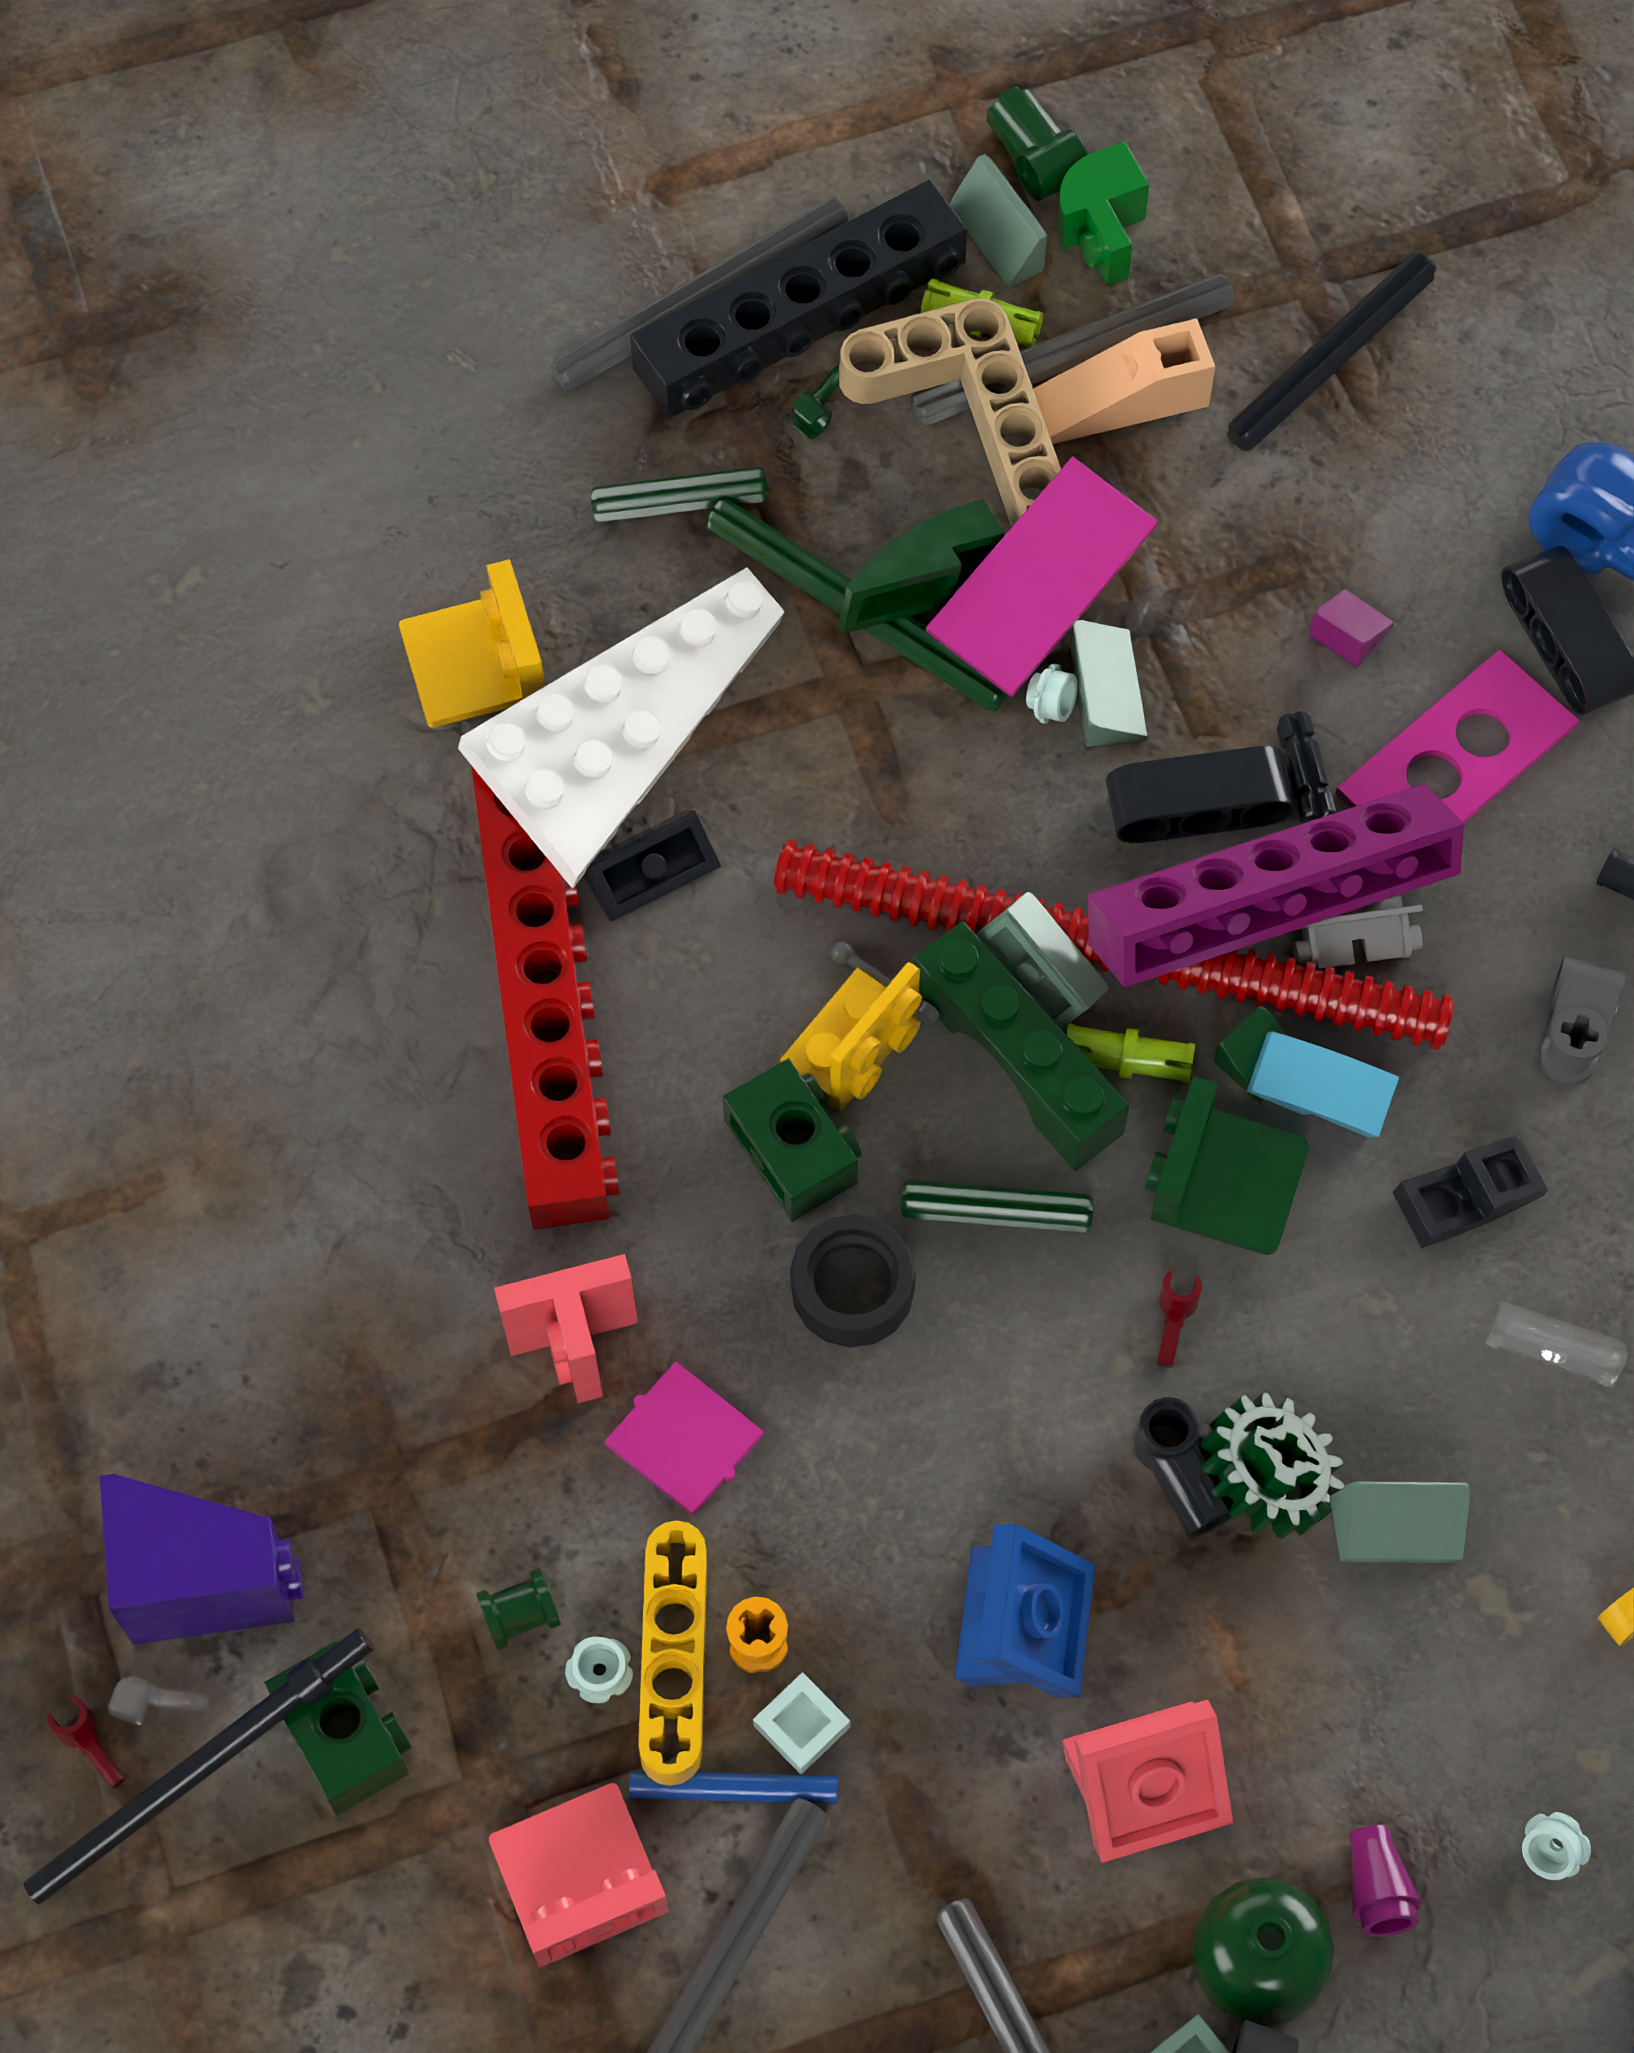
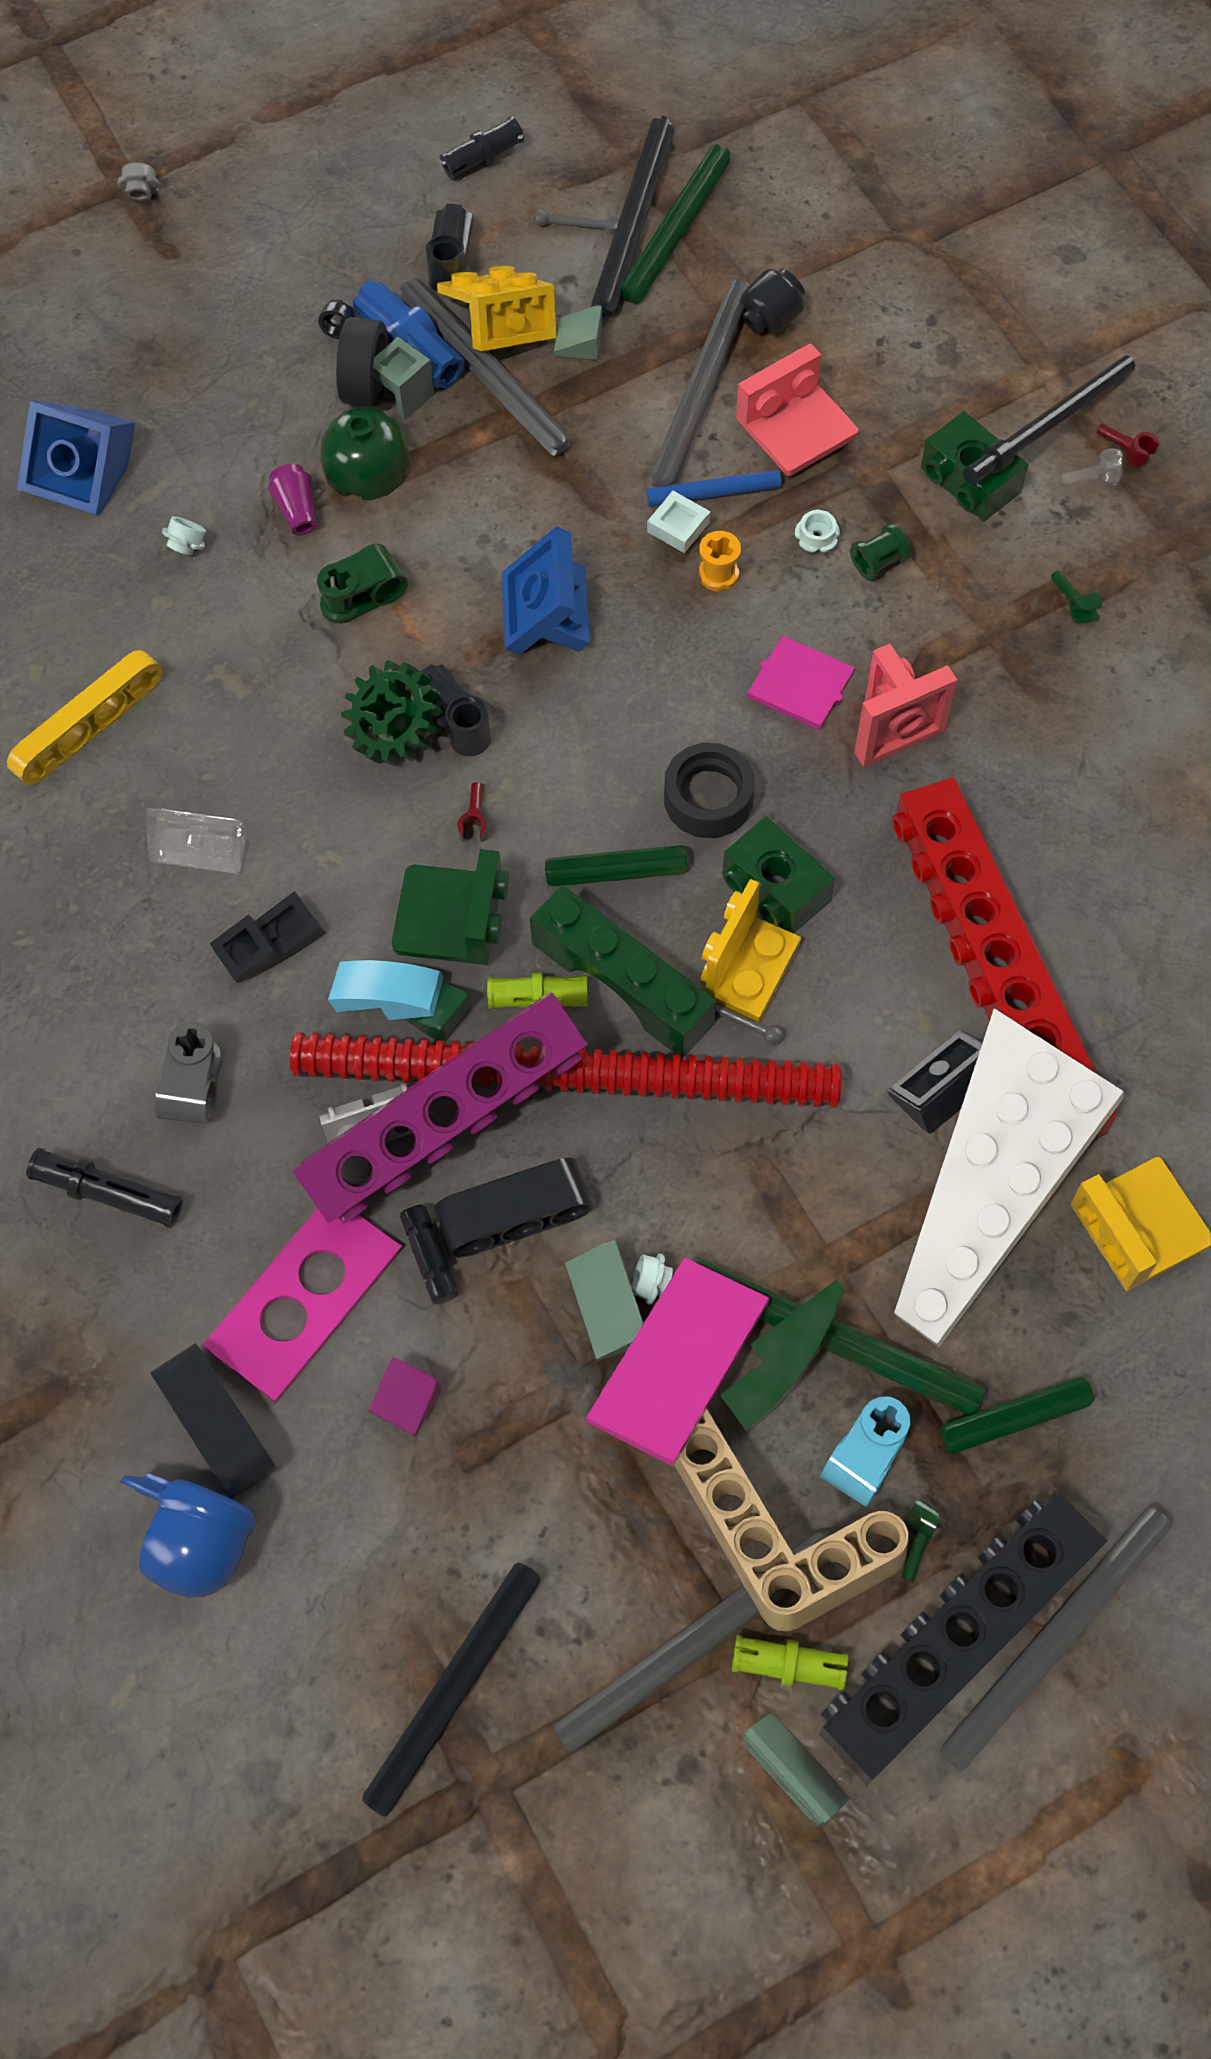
camera: 170 degrees right, 0 degrees up
(192, 1564) = (1102, 520): dark purple slope -> none
(256, 1471) = (1081, 607): none -> dark green hand
(670, 1651) = (772, 545): yellow beam -> none
(850, 481) = (865, 1457): none -> medium azure piece
(1034, 141) = (766, 1863): dark green piece -> none
(1043, 959) = (618, 1033): sand green slope -> none
(1095, 204) = (709, 1812): green brick -> none
(1130, 383) = (643, 1588): light nougat slope -> none
(1151, 1779) = (453, 529): coral bracket -> none
(1281, 1708) = (363, 579): none -> dark green piece
(1401, 1521) = (300, 698): sand green slope -> none

